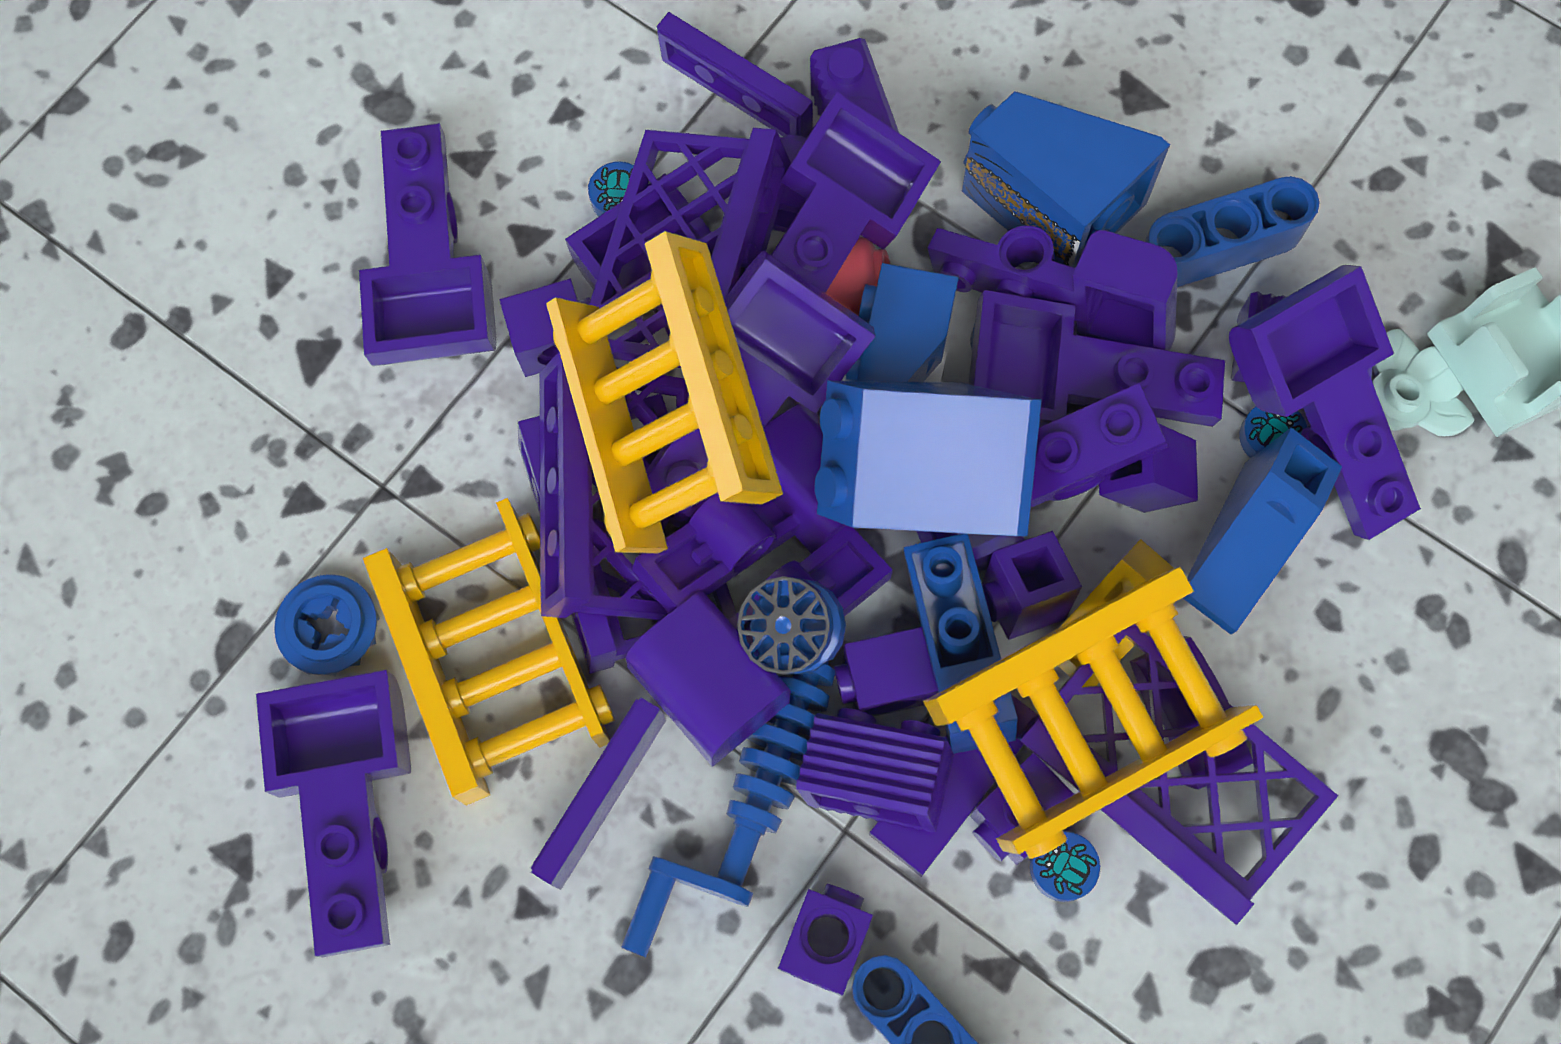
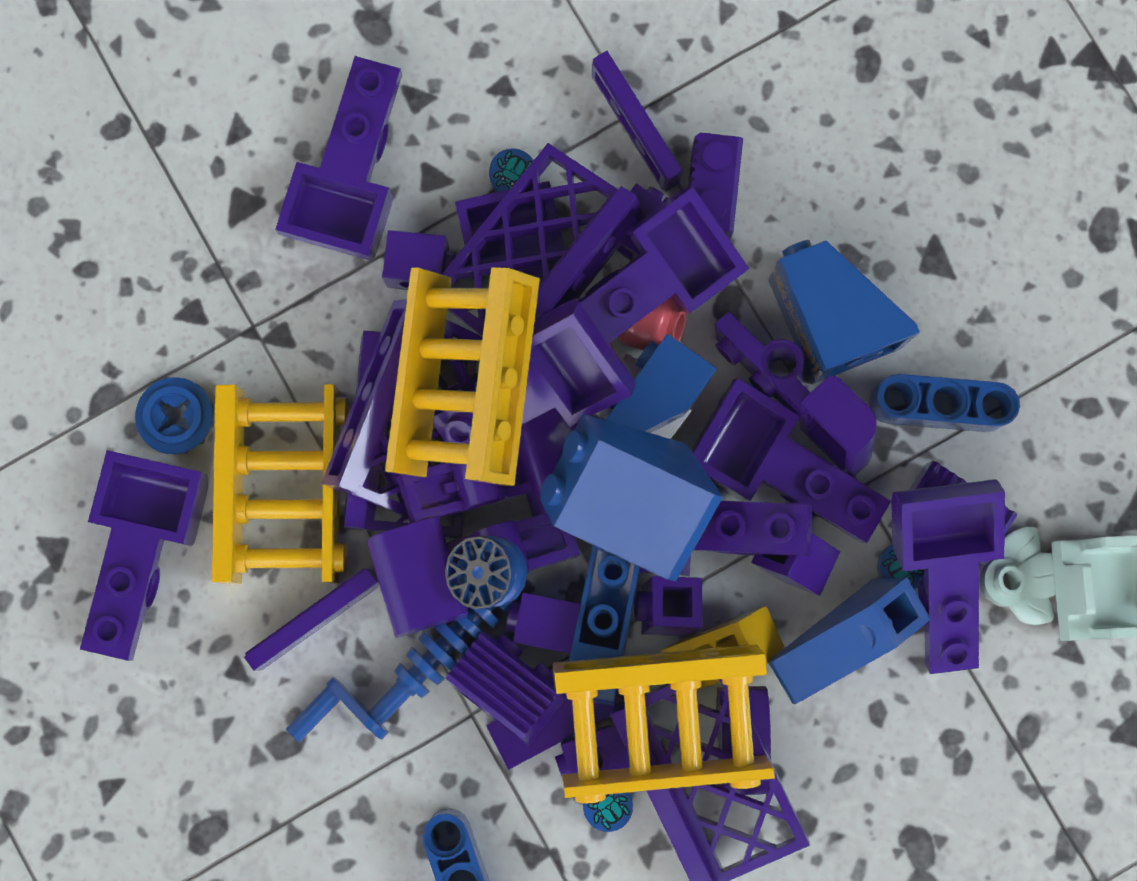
camera: 20 degrees right, 10 degrees up
(822, 971) = (410, 803): dark purple brick -> none

